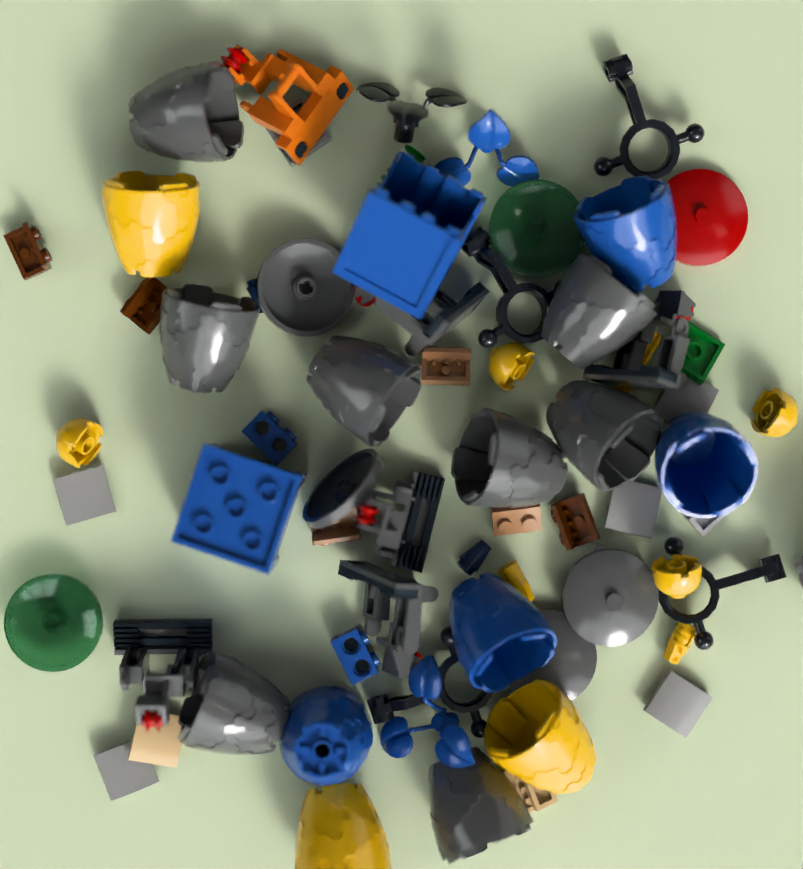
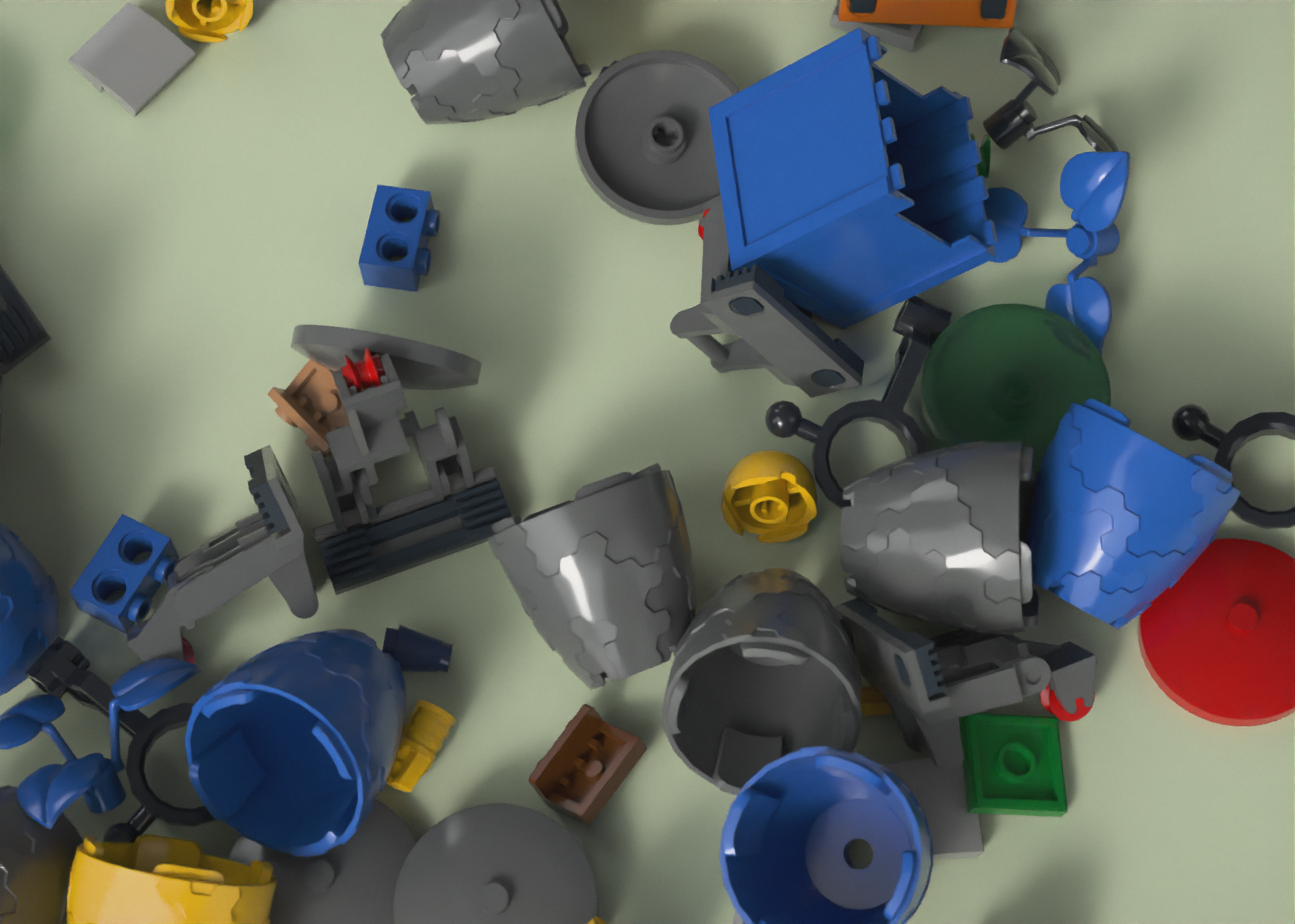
camera: 55 degrees right, 25 degrees down
(237, 508) = (251, 225): blue container -> none
(364, 385) = (572, 298): dark grey piece -> none
(445, 366) = (696, 407): medium nougat bracket -> none
(516, 520) = (528, 671): medium nougat bracket -> none
(633, 509) = (673, 848): light grey slope -> none

